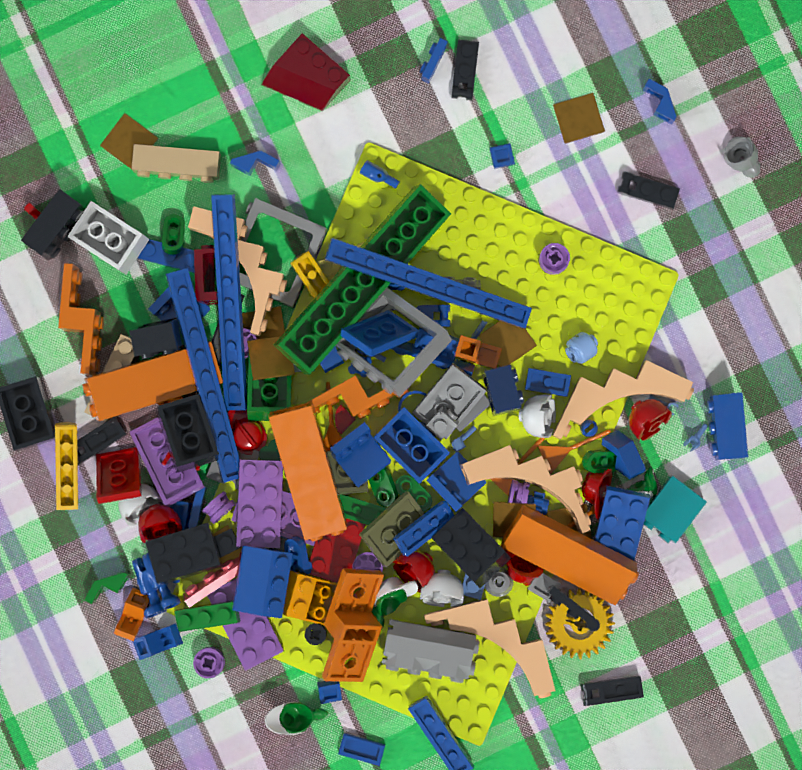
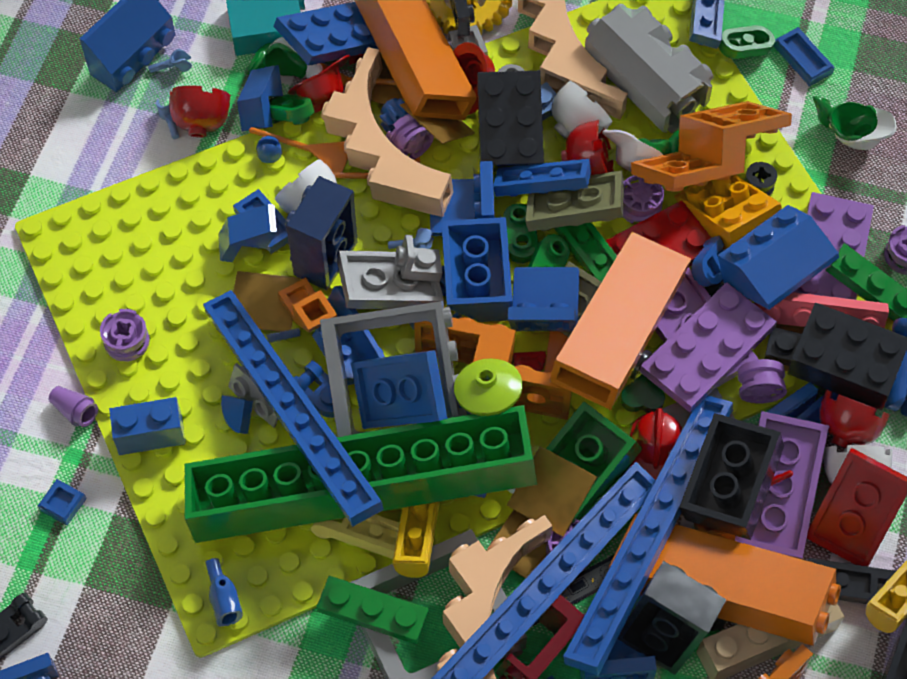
camera: 140 degrees left, 25 degrees down
(301, 225) = (372, 610): none -> green plate
(326, 370) = (490, 396): none -> lime dish
(329, 691) = (798, 129): blue plate -> none
(397, 725) = (746, 42): none -> green plate
(460, 268) = (237, 413): none -> blue tile
(493, 221) = (147, 426): none -> blue brick
(544, 204) = (74, 406): none -> medium lavender cone
(546, 363) = (248, 229): none -> blue slope
(581, 347) = (193, 223): light blue head -> none
(650, 380) = (236, 168): light nougat arch -> none

